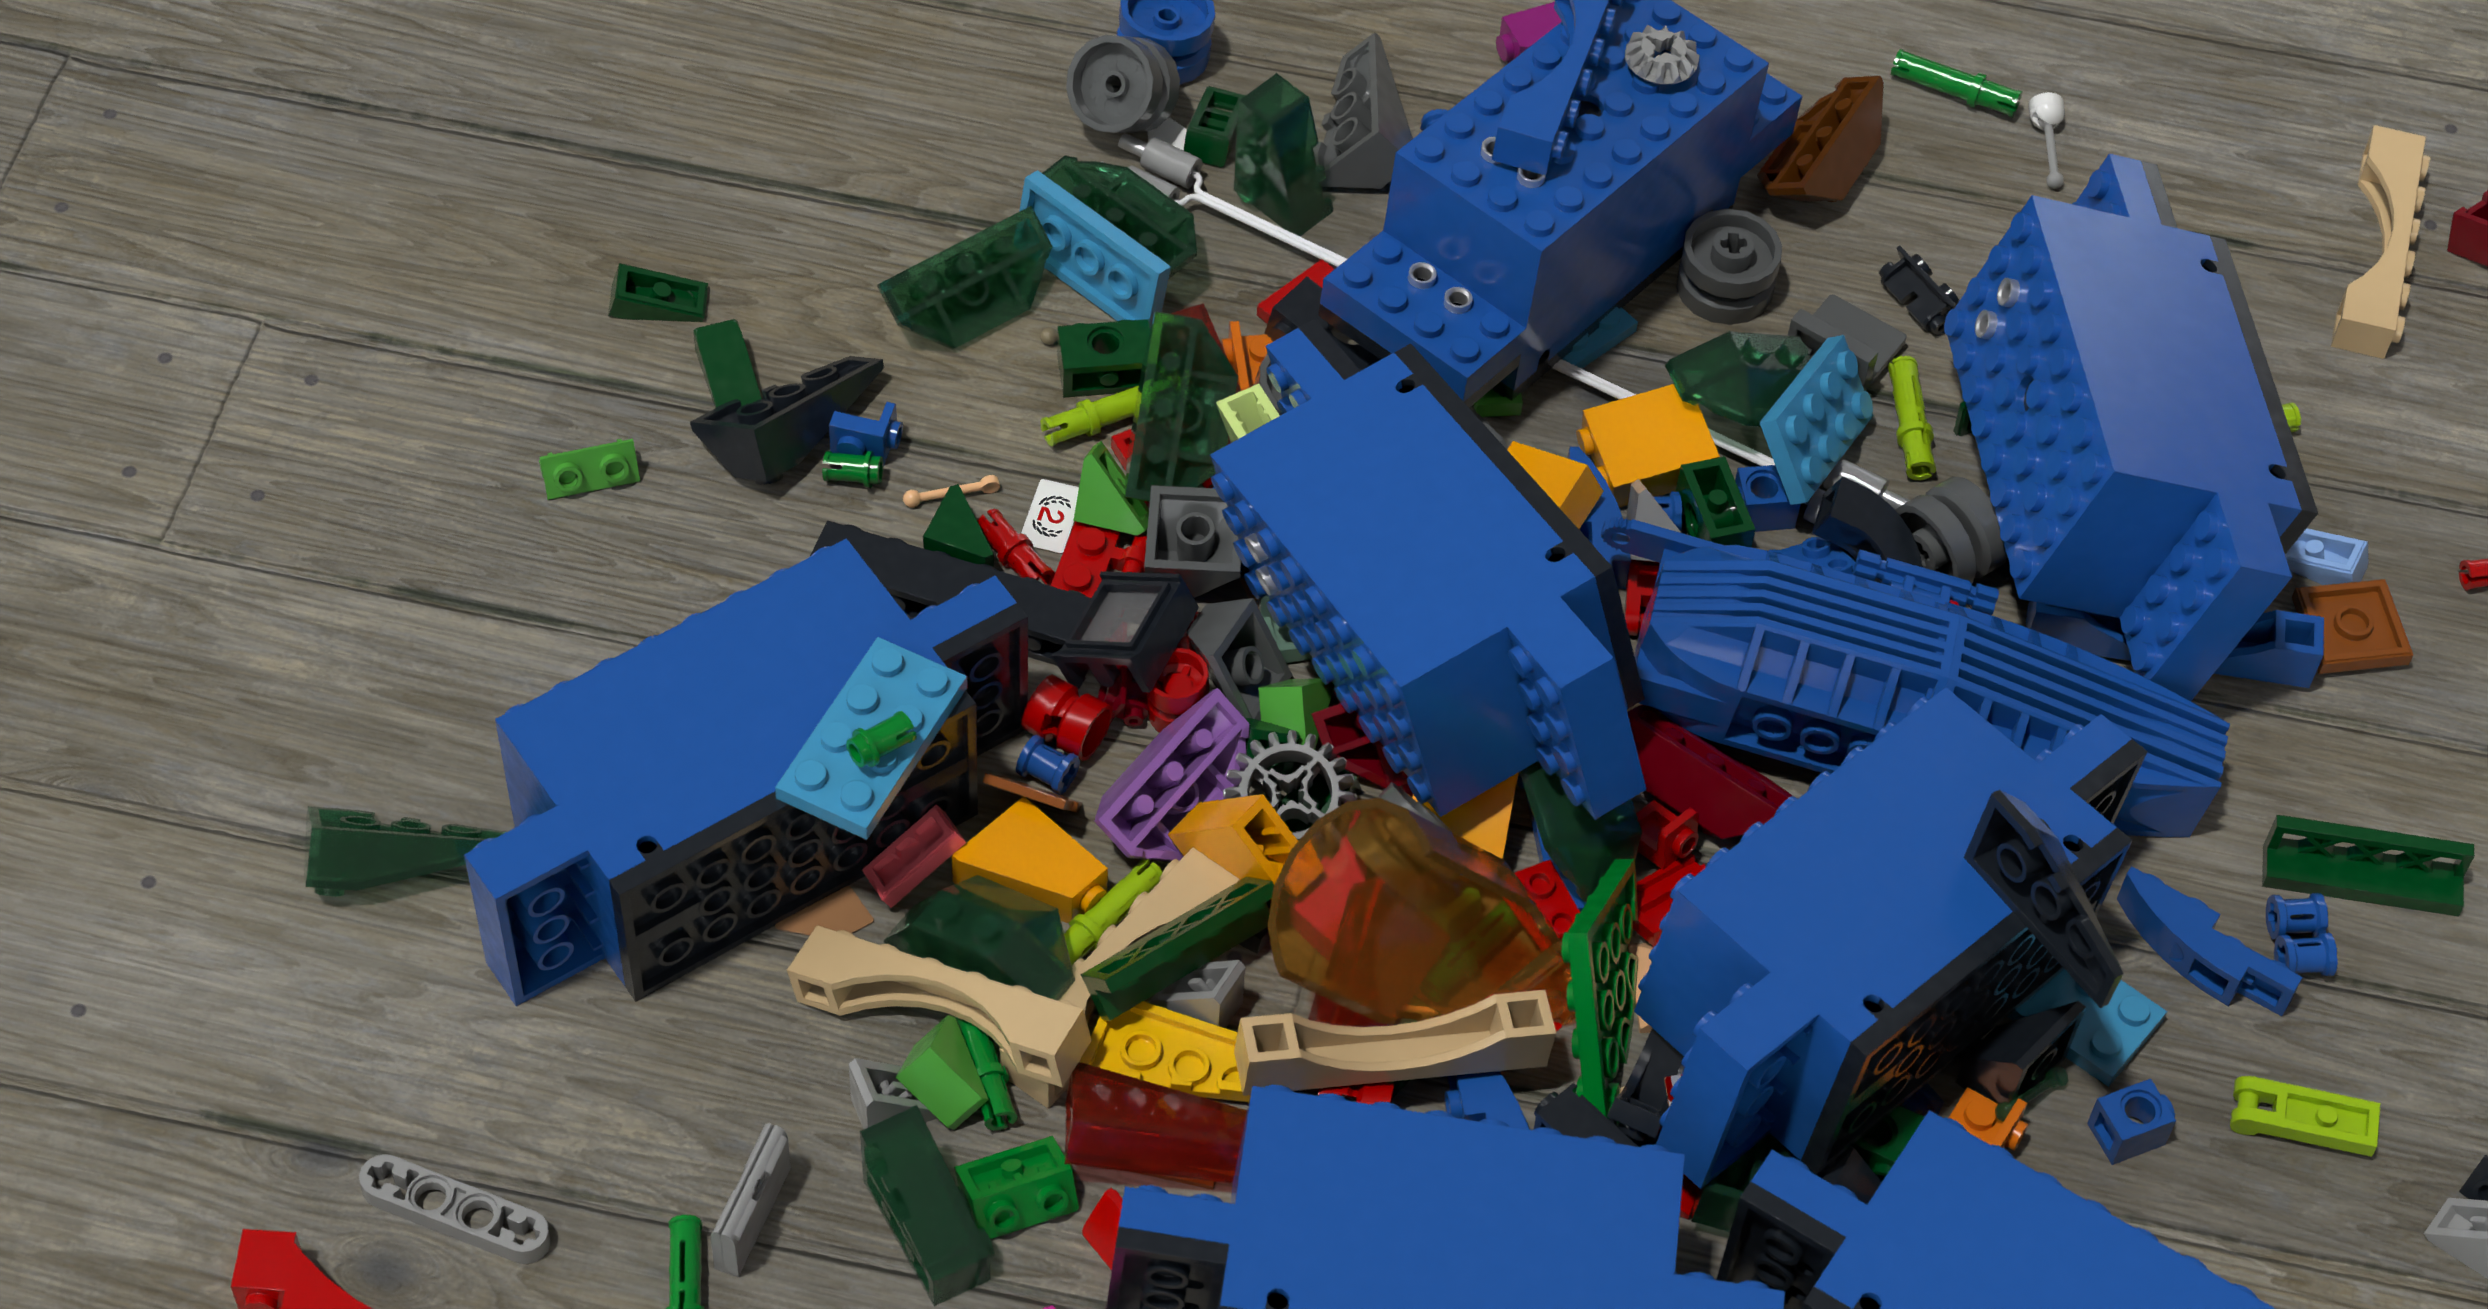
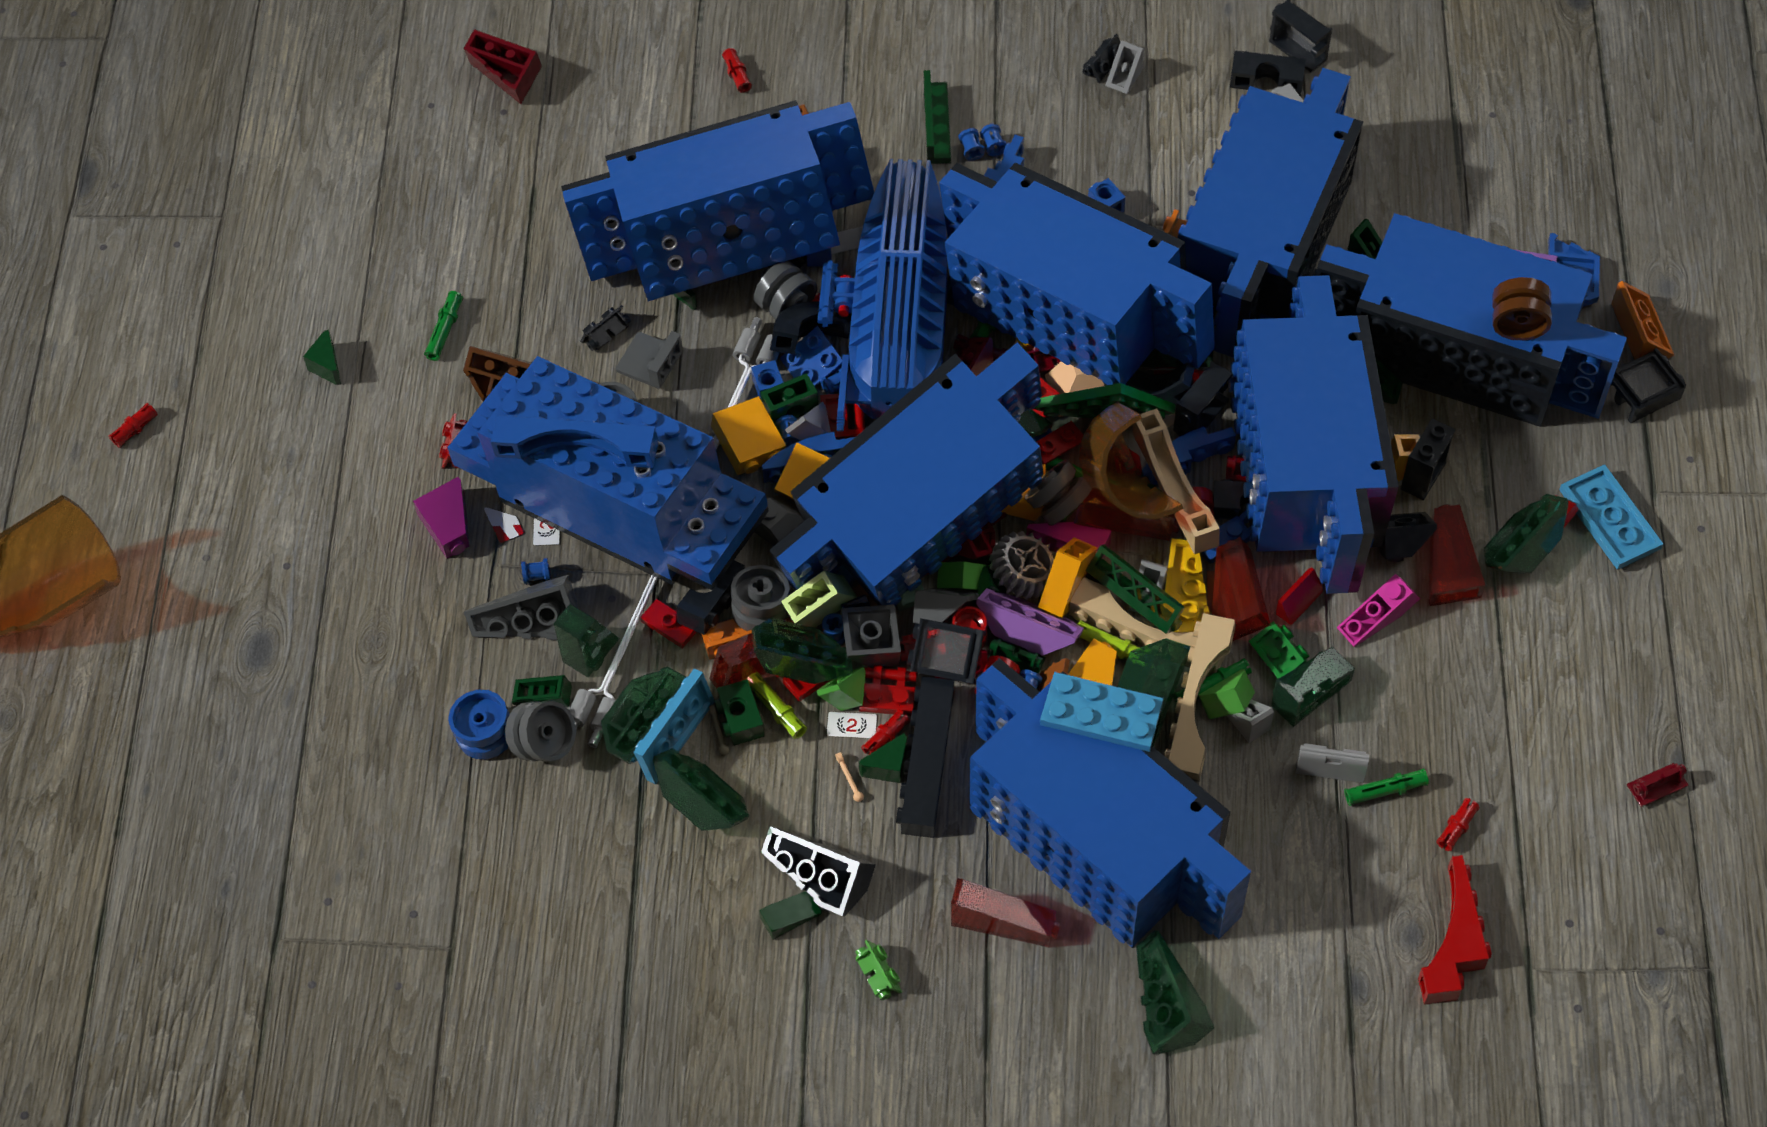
camera: 95 degrees left, 5 degrees up
(450, 1215) = (1370, 908): light grey beam -> none
(633, 604) = (1002, 914): none -> clear red slope
(656, 296) = (739, 969): dark green slope -> none
(855, 468) = (847, 821): green pin -> none
(858, 434) = (826, 815): blue bracket -> none
(869, 745) = (1121, 696): green pin -> none
(1110, 760) = (1020, 656): none -> dark green hinge
(1663, 68) = (558, 406): light grey gear -> none
(1739, 373) = (707, 384): clear green wedge -> none
(1817, 419) = (726, 350): dark azure plate -> none
(1913, 432) = (696, 324): lime pin -> none
(2036, 881) = (1066, 185): black wedge -> none
(2046, 113) = (461, 281): hinge -> none
(2305, 1115) = (1081, 135): lime plate -> none
(2390, 180) = (481, 124): tan arch -> none

